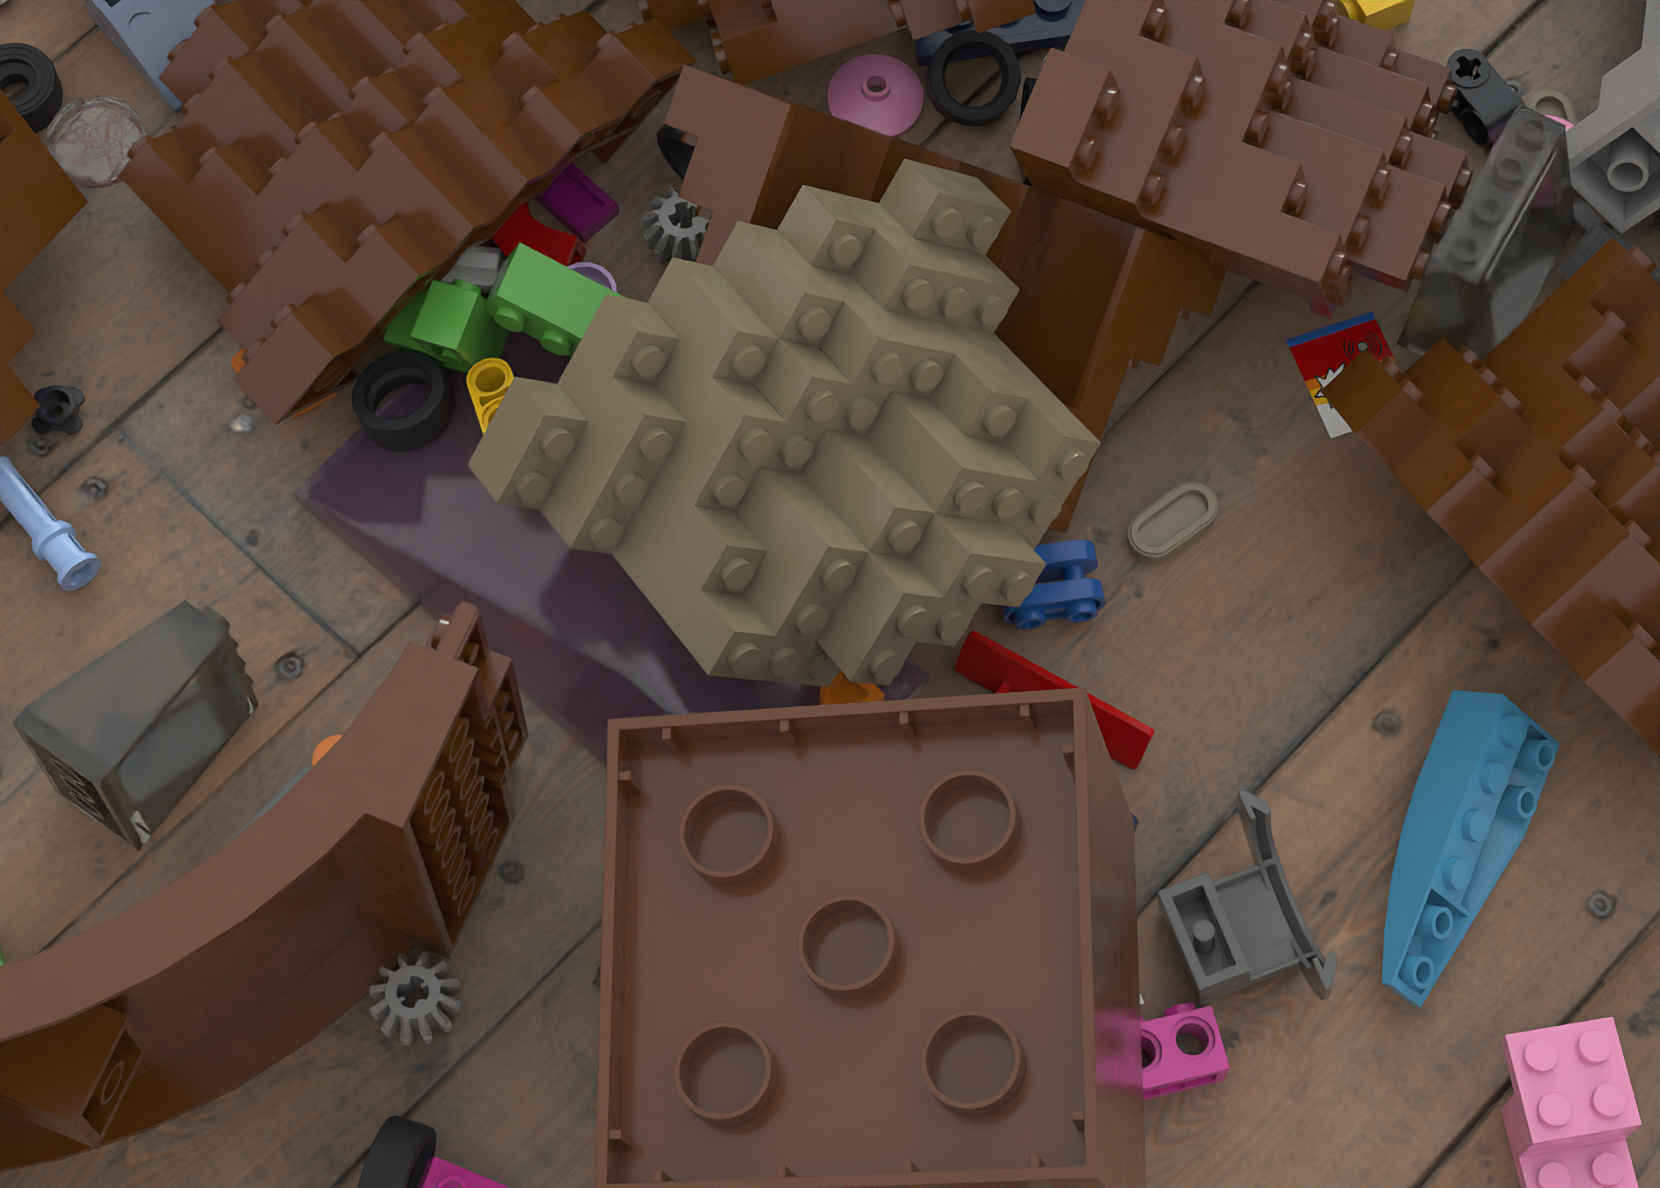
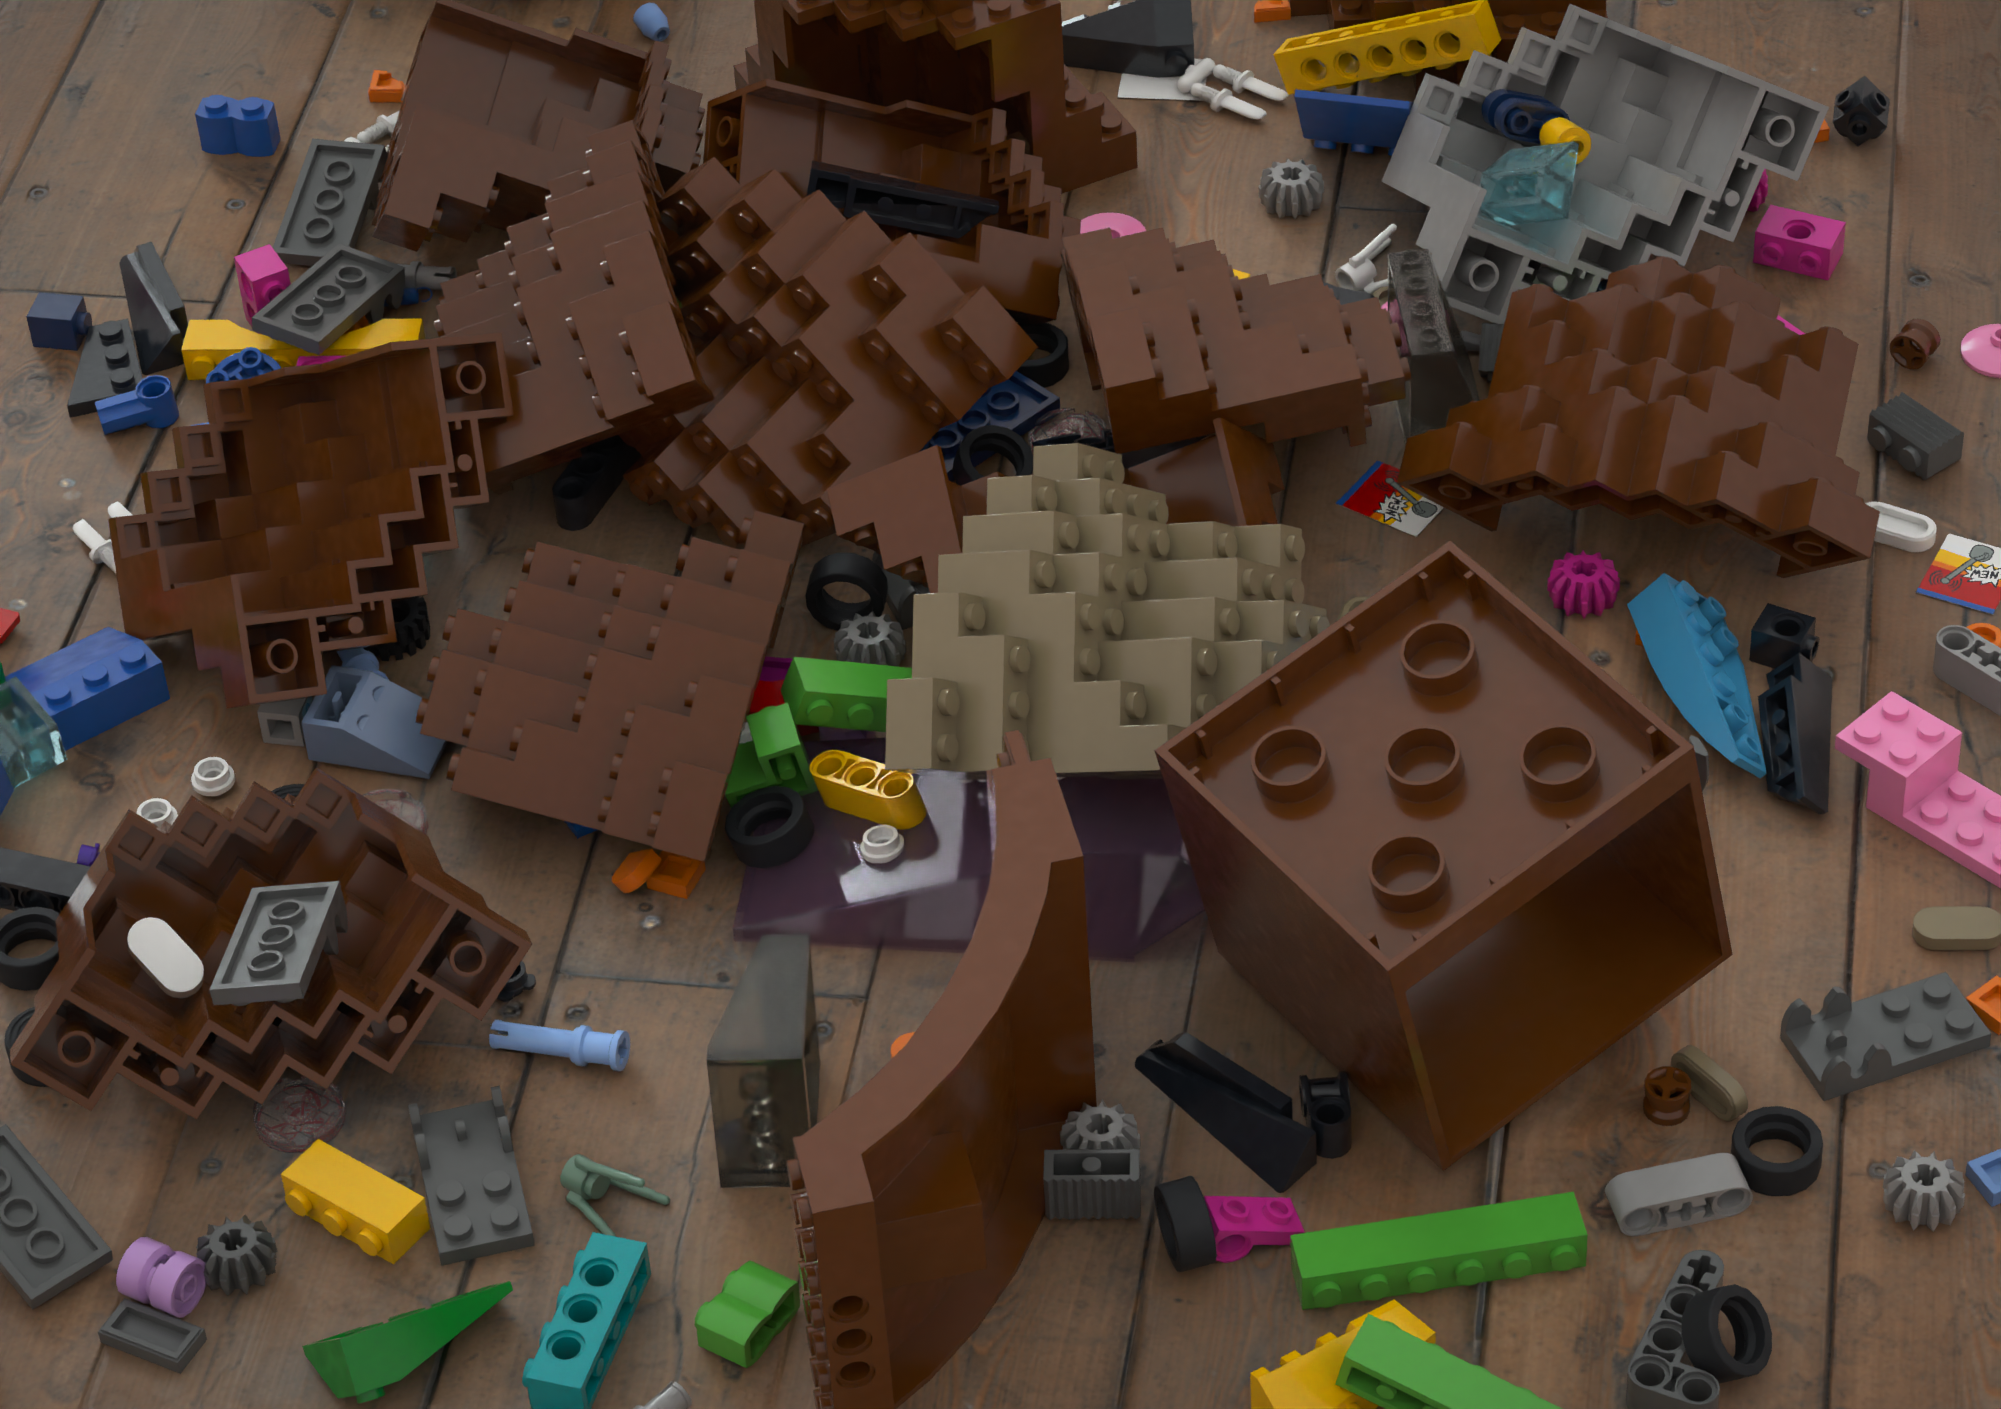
camera: 30 degrees left, 25 degrees down
(357, 1053) = (1092, 1183): none -> dark grey brick
(474, 517) = (881, 853): none -> white plate
(565, 1044) = (1233, 1107): none -> black wedge
(1455, 621) = (1583, 584): none -> dark pink gear
(1500, 973) = (1797, 733): none -> black wedge
(1541, 55) = (1360, 271): none -> white plant
(1592, 821) = (1781, 635): none -> black brick

